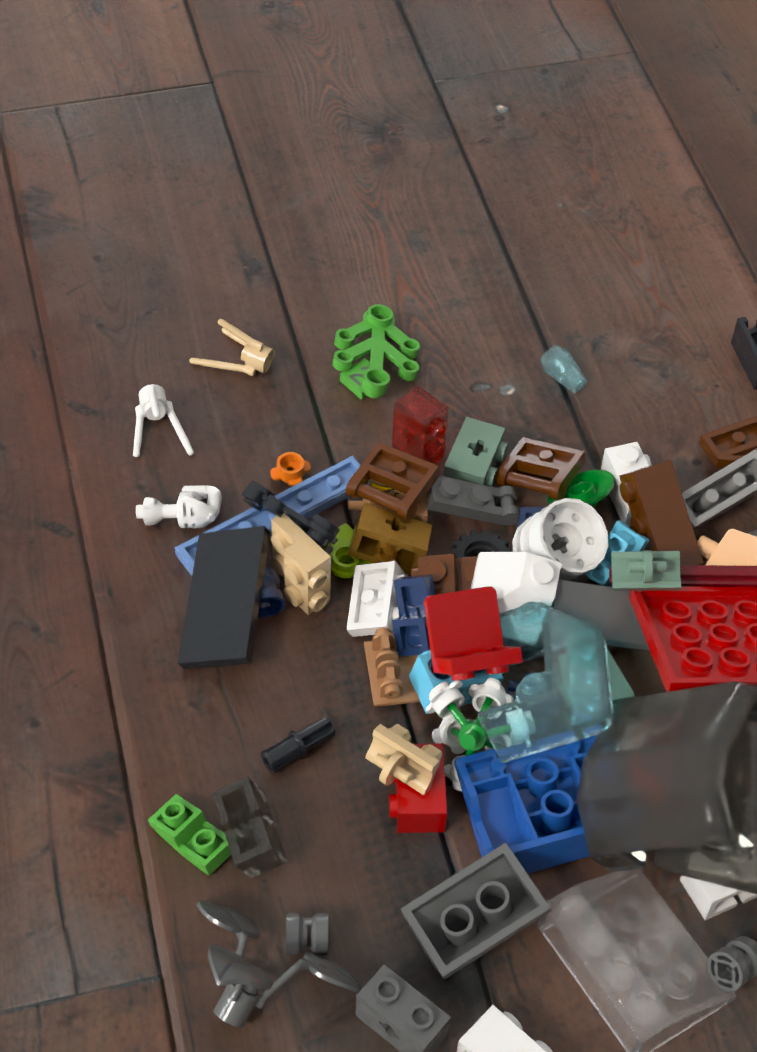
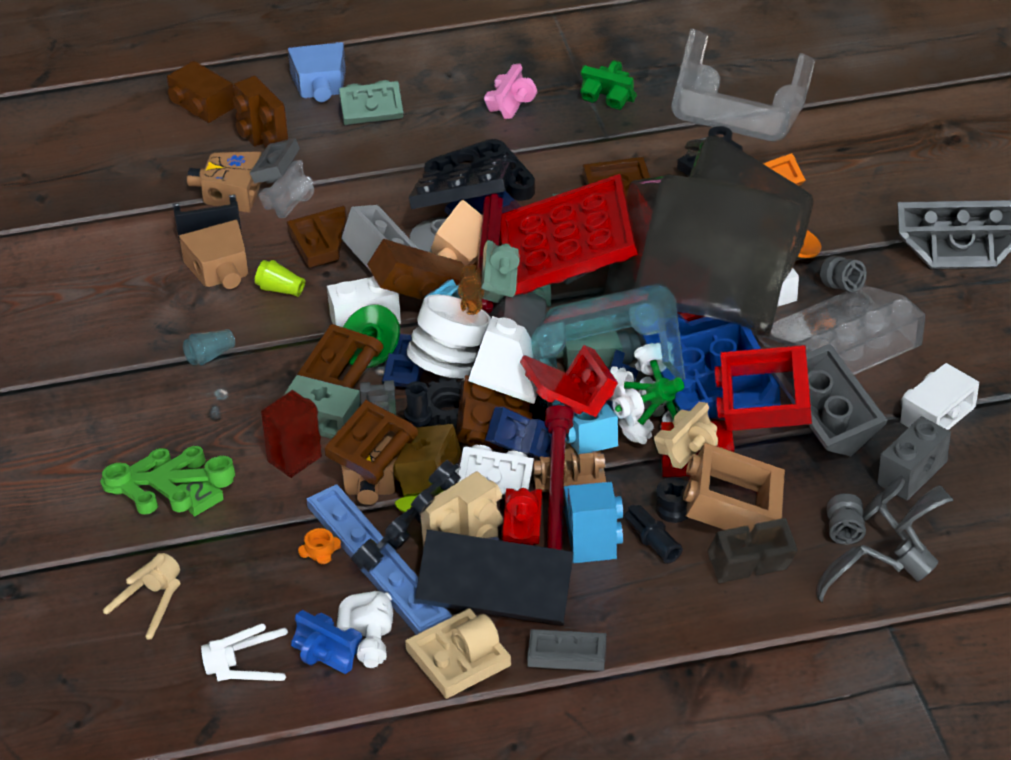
camera: 85 degrees left, 10 degrees down
(139, 665) = (567, 650): none -> dark grey plate
(142, 577) = (459, 652): none -> tan plate
(158, 472) = (322, 641): none -> blue hips
(190, 834) = (751, 606): bright green slope -> none
(306, 682) = (592, 521): none -> dark azure brick
(312, 623) = (522, 516): none -> red hips
(328, 853) = (737, 469): none -> medium nougat window
(342, 774) = (670, 500): none -> black wheel
(416, 638) = (559, 422): none -> dark red piece
(449, 524) = (417, 407): none -> black pin
(466, 862) = (762, 362): none -> red window
(603, 547) = (470, 289): none -> clear orange pin
(671, 414) = (276, 278): none -> lime cone
(700, 365) = (216, 254): none -> medium nougat torso

